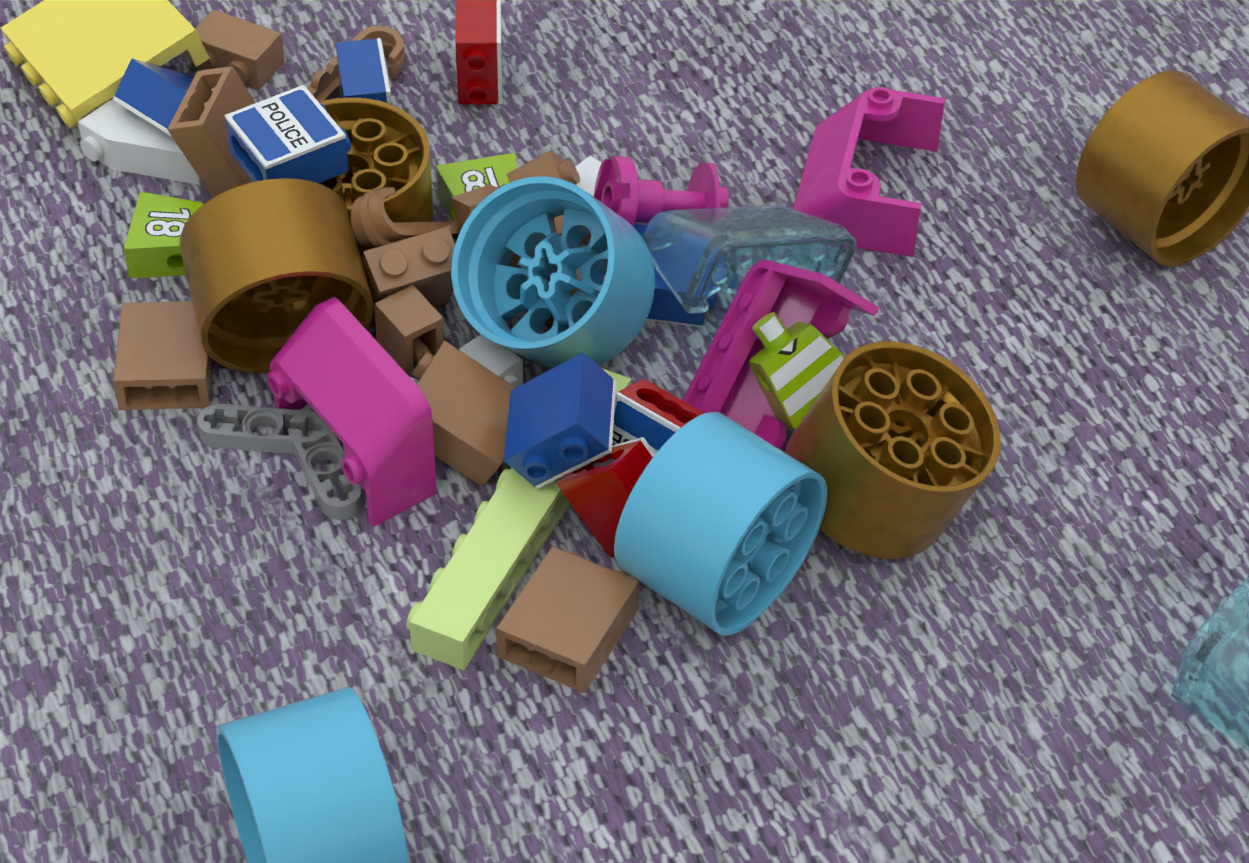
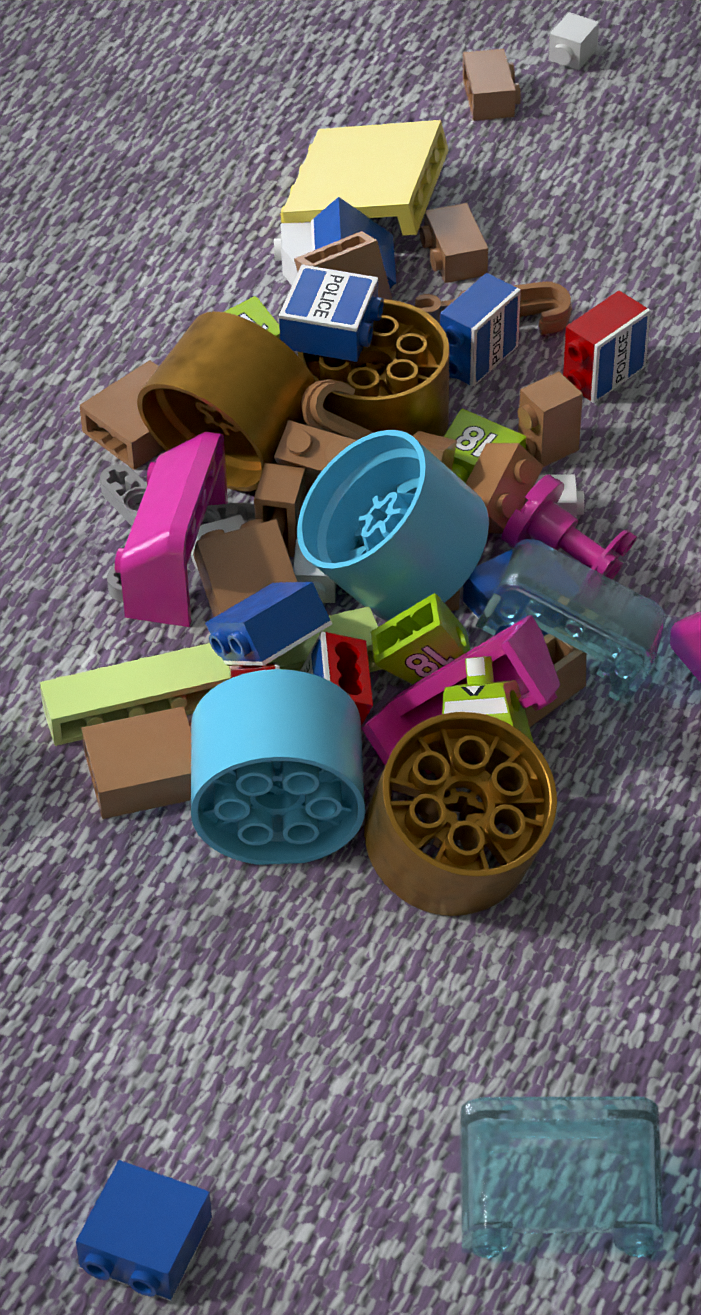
camera: 50 degrees right, 0 degrees up
(516, 120) = (550, 418): none -> medium nougat brick
(670, 350) = (419, 640): none -> lime torso

